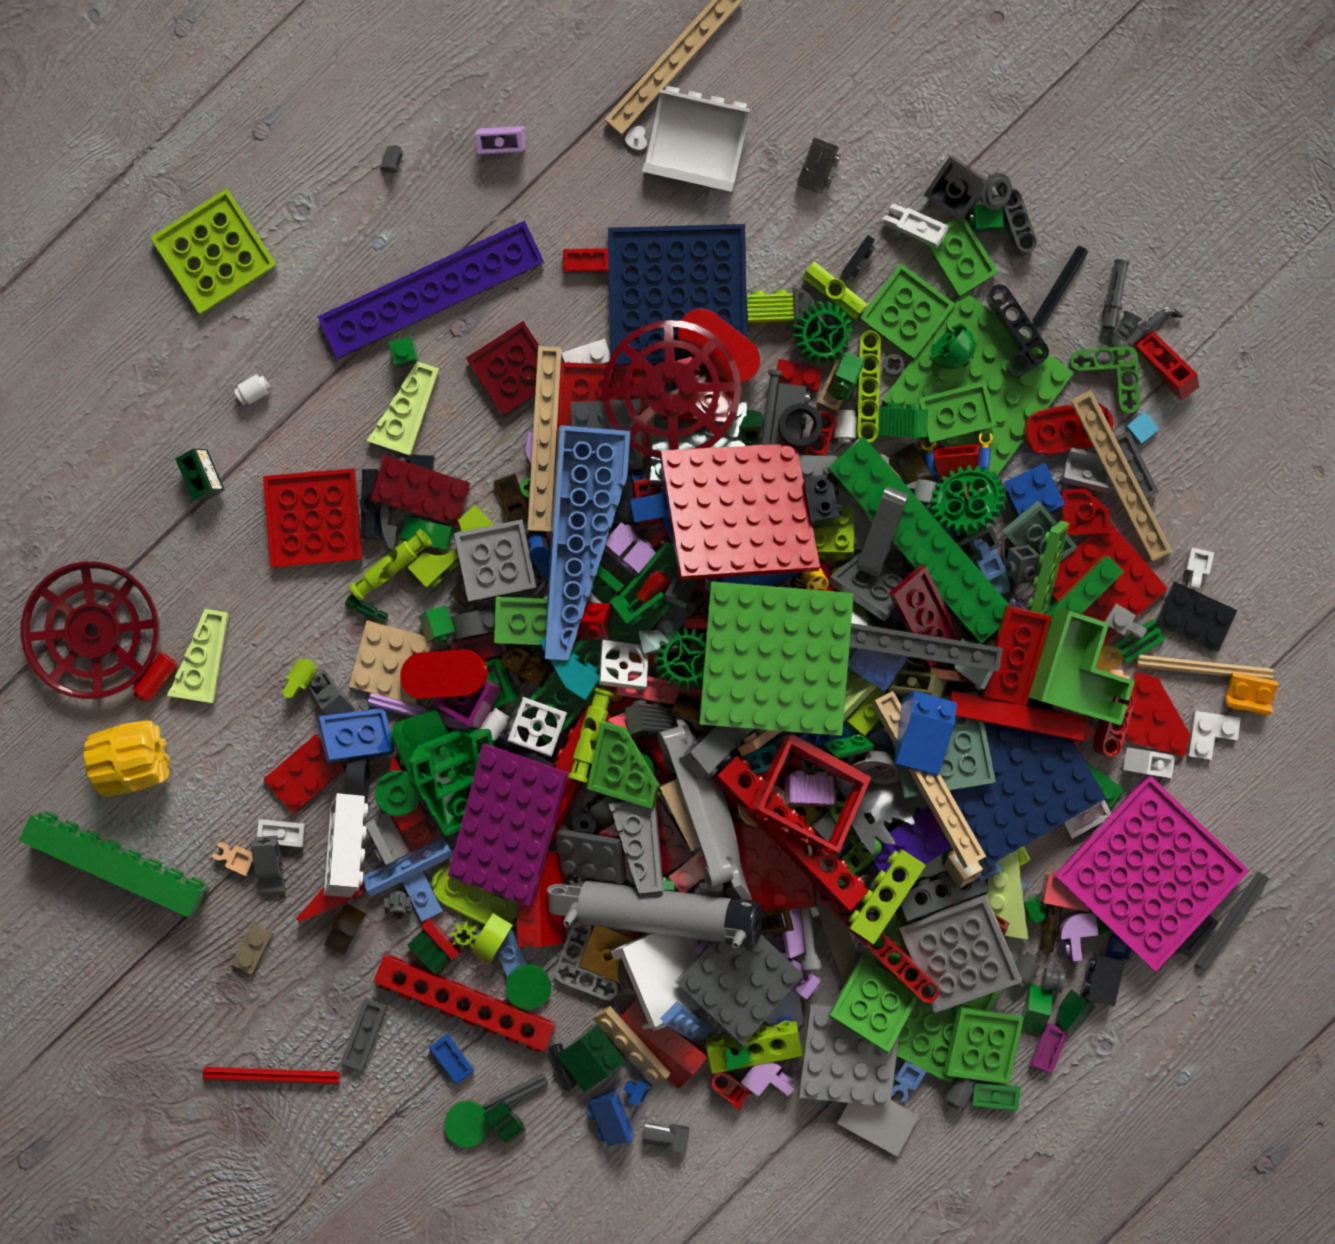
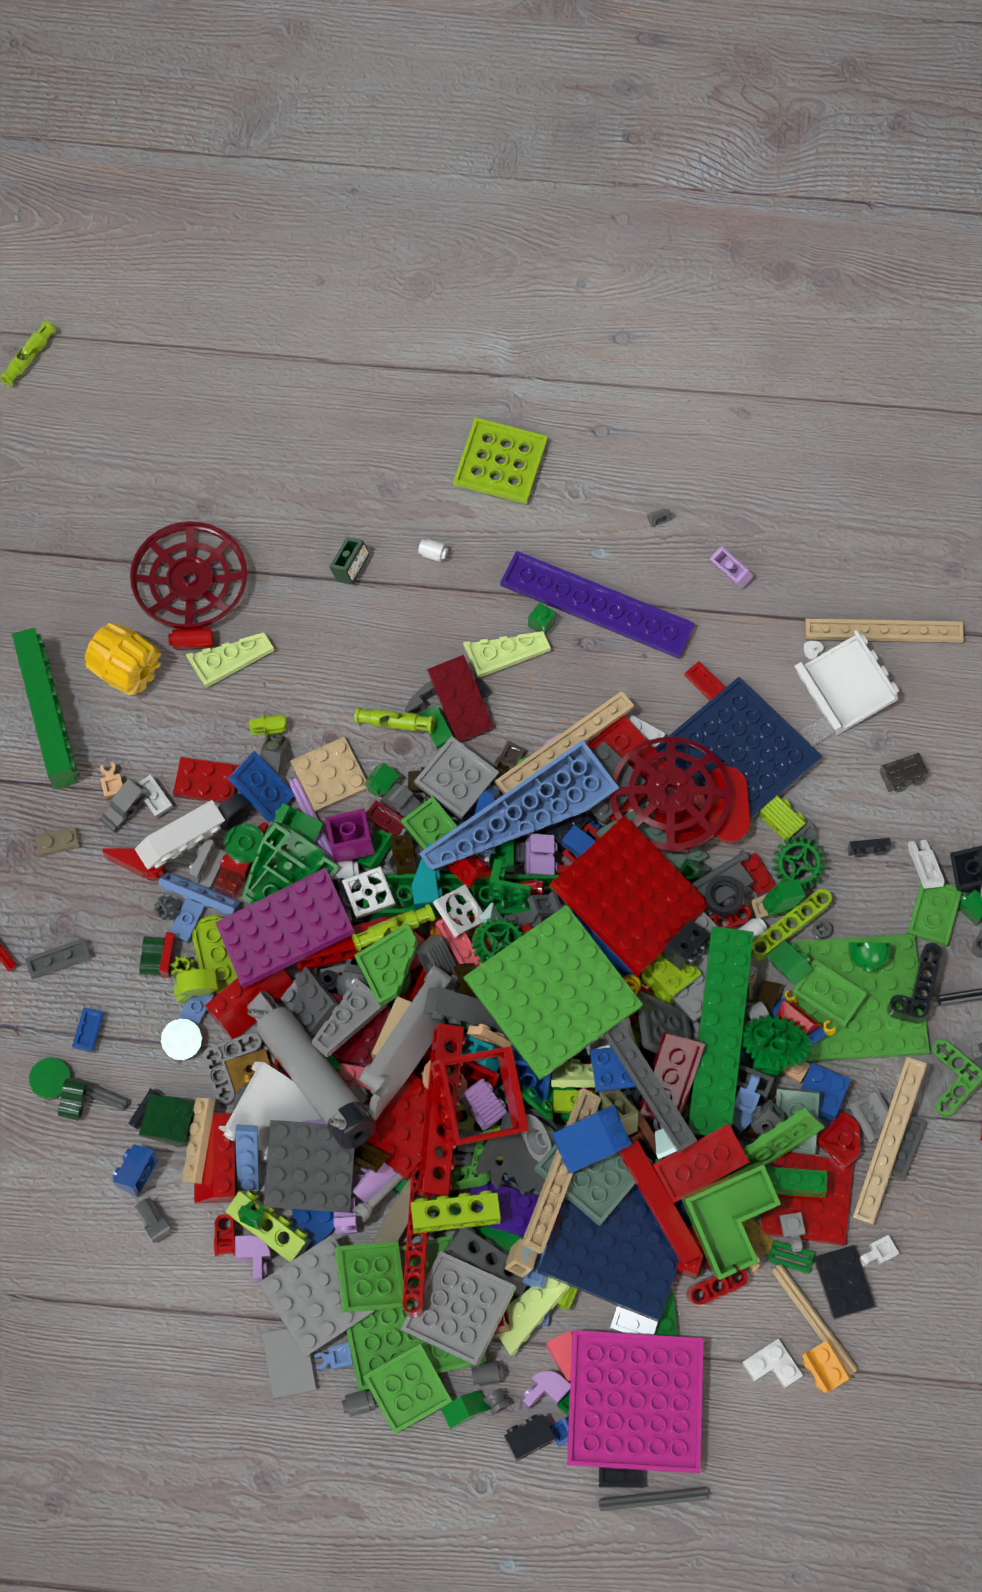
camera: 50 degrees right, 20 degrees down
(312, 517) = (382, 651): red plate -> none
(344, 928) = (122, 889): dark brown slope -> none
(366, 609) = (351, 731): dark green axle -> none
(369, 518) = (414, 683): black piece -> none
(431, 568) = (416, 748): lime arch -> none
(443, 674) = (351, 806): red tile -> none
(508, 367) = (589, 688): dark red plate -> none
(542, 1026) = (110, 940): red brick -> none
(637, 1091) = (169, 1174): blue tile -> none
(822, 280) = (834, 861): lime piece -> none
(882, 531) = (700, 996): dark grey beam -> none
(907, 311) = (865, 907): bright green plate -> none
(995, 1096) = (377, 1432): green plate -> none
(1035, 909) = (536, 1344): green tile -> none
(1048, 1048) = (445, 1441): magenta plate -> none
(1050, 928) = (533, 1367): dark brown pin -> none
(1058, 430) = (880, 1072): red tile -> none
(1073, 1011) = (487, 1438): dark green brick -> none
(1142, 427) = (937, 1131): medium azure tile -> none
(1149, 762) = (715, 1338): white slope -> none
(1155, 719) = (746, 1313): red plate -> none

